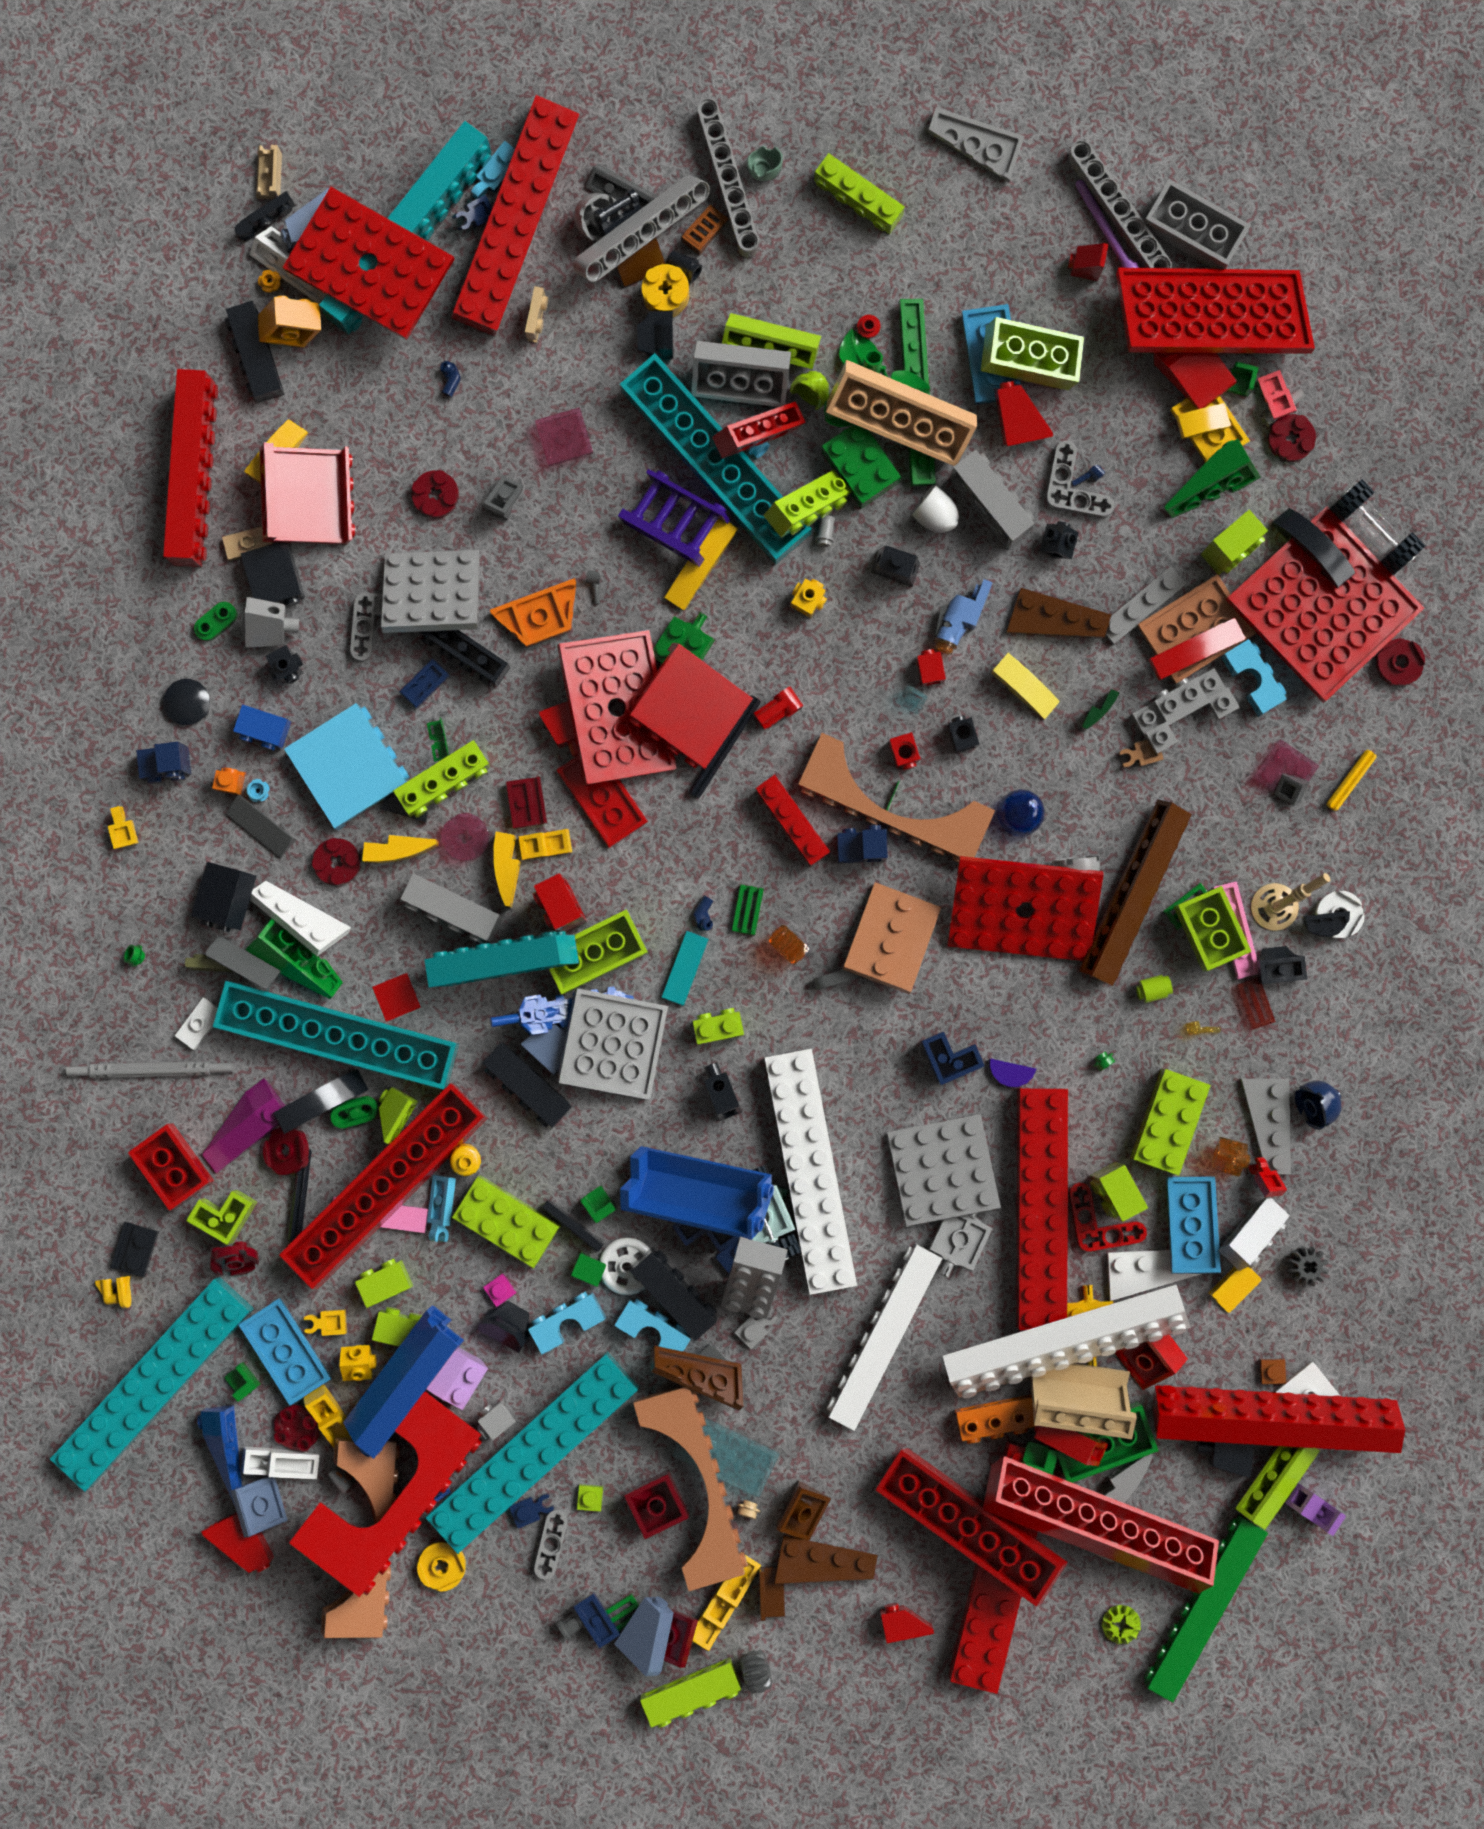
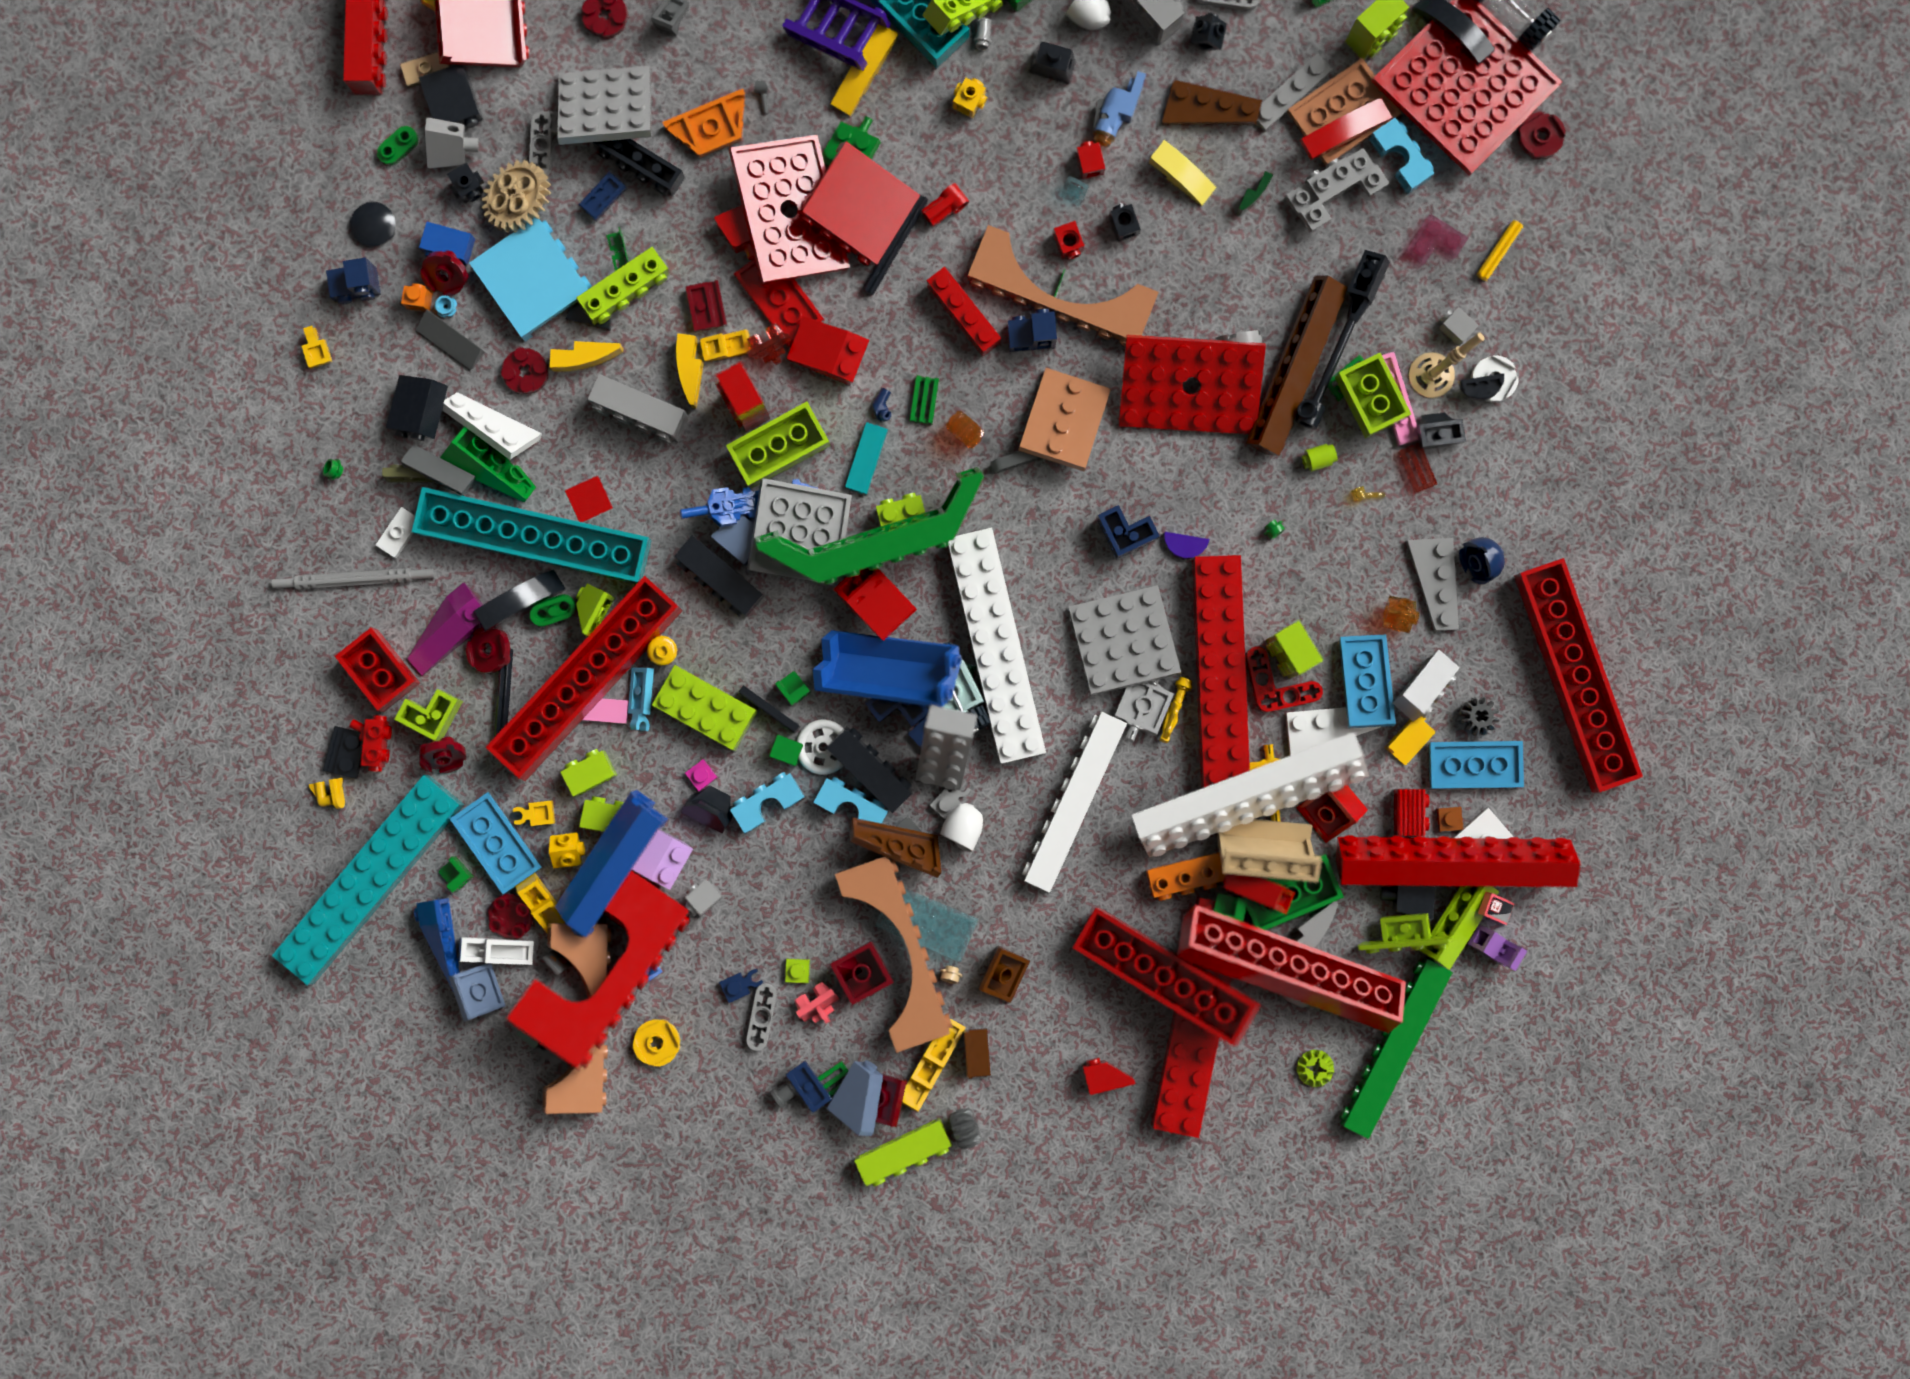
camera: 10 degrees left, 0 degrees up
(165, 1238) = (374, 736): none -> red brick
(248, 1552) = (468, 1035): red slope -> none
(261, 748) = (451, 265): none -> dark red plate
(335, 681) = (516, 196): none -> tan gear
(457, 826) = (640, 331): clear pink plate -> none
(501, 959) = (688, 454): teal brick -> none
(532, 1452) = (739, 928): teal brick -> none
(598, 841) = (759, 348): none -> clear red hips
(617, 1528) = (819, 1007): none -> coral hips
(650, 855) = (828, 350): none -> red slope
(687, 1118) = (875, 601): none -> red slope
(694, 1063) = (881, 543): none -> green slope
(724, 1101) = (909, 580): black torso -> none
(768, 1357) = (963, 826): none -> white piece
(812, 1561) = (1016, 1021): reddish brown wing -> none
(988, 1252) = (1171, 716): none -> yellow piece
(1021, 812) = (1183, 295): clear blue cylinder -> none
(1143, 753) = (1298, 233): medium nougat plate -> none
(1170, 1121) = (1340, 583): lime brick -> none
(1207, 818) = (1362, 291): none -> black bar
(1221, 1490) = (1406, 932): none -> lime bracket
(1231, 1363) = (1410, 812): none -> red brick
(1267, 1180) = (1437, 635): red plate -> none
(1291, 788) = (1442, 260): dark grey slope -> none
(1302, 1316) = (1476, 764): none -> dark azure plate
(1304, 858) = (1457, 326): none -> light grey brick
(1316, 1468) = (1496, 908): none -> slope
(1412, 1230) = (1578, 676): none -> red brick

